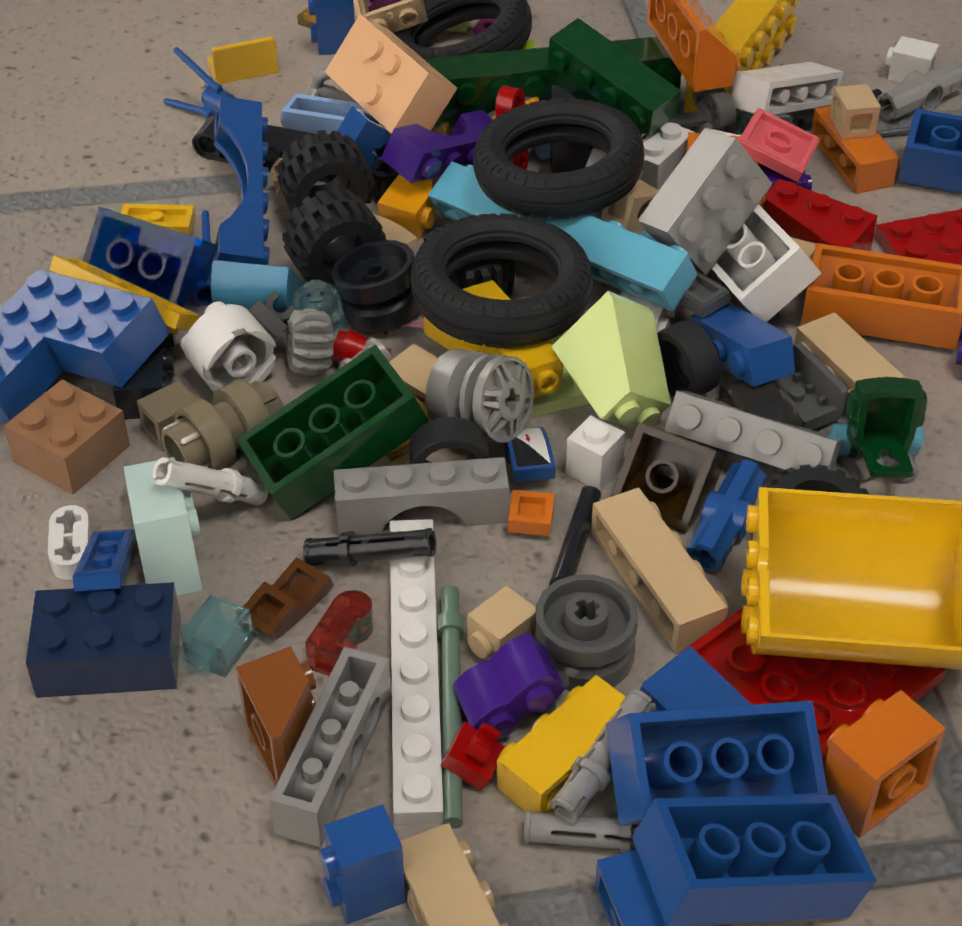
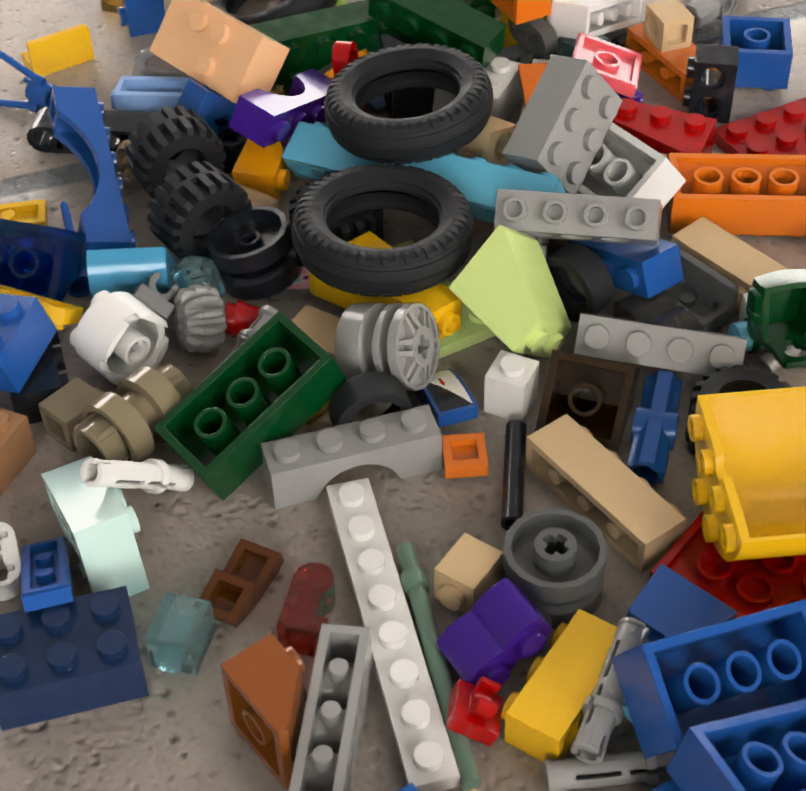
camera: 10 degrees left, 0 degrees up
(353, 548) = (297, 520): black pin -> none
(697, 294) = (580, 216): none -> light grey brick
(889, 178) = (717, 83): none -> black brick

